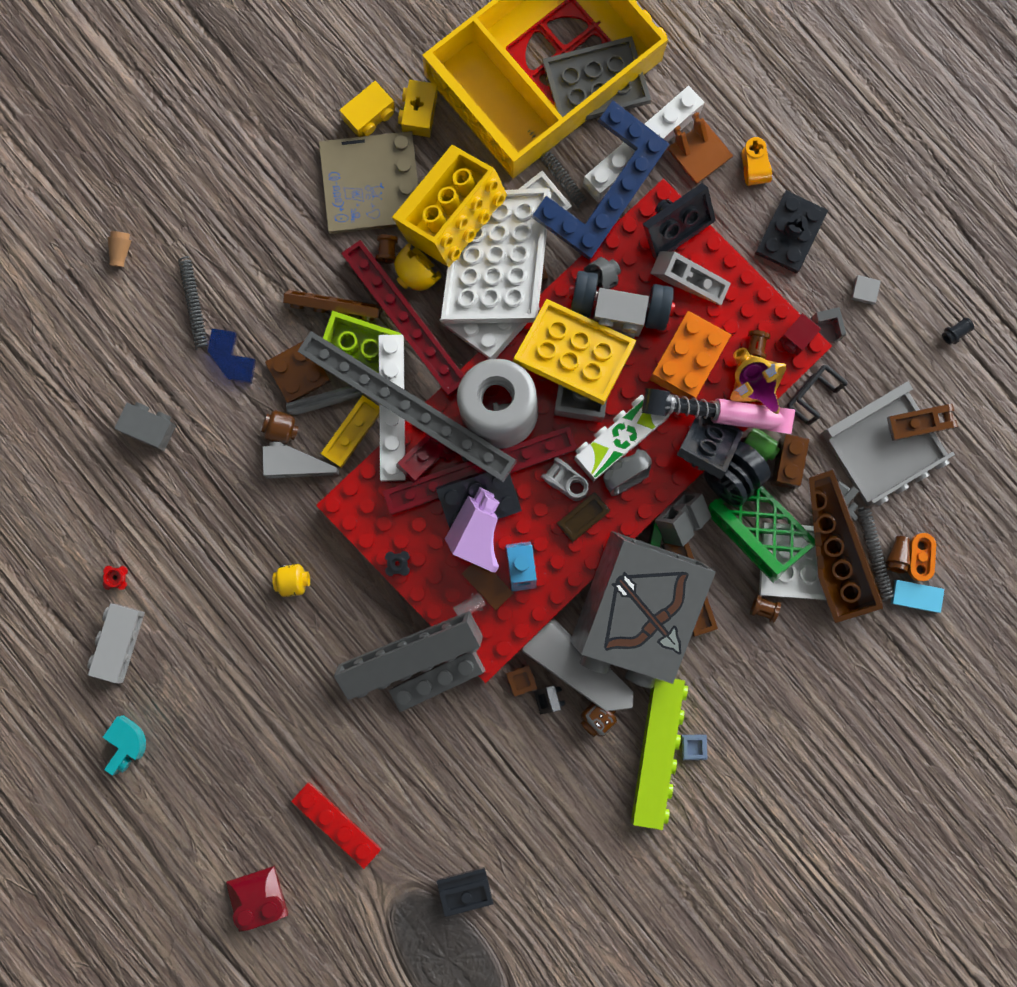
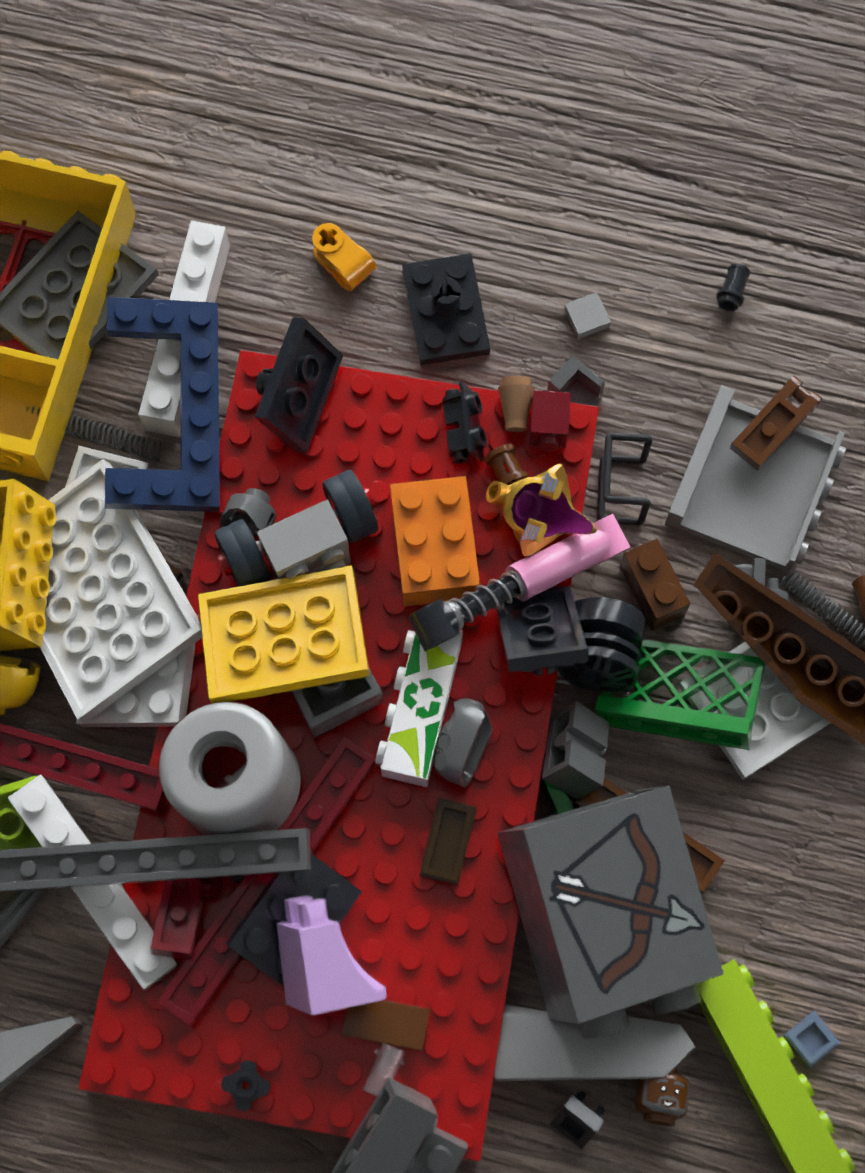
camera: 30 degrees left, 10 degrees down
(351, 431) = (60, 954): yellow plate -> none
(521, 566) = (414, 965): dark azure torso -> none
(521, 680) = (524, 1121): reddish brown tile -> none
(565, 479) = (388, 809): light grey piece -> none
(690, 277) = (361, 443): light grey slope -> none
(699, 150) = (260, 288): dark orange plate -> none
(749, 314) = (470, 437): none -> black hinge
(762, 443) = (604, 584): bright green brick -> none
(765, 608) = (763, 790): reddish brown bush -> none
(789, 311) = (516, 401): none -> medium nougat cone

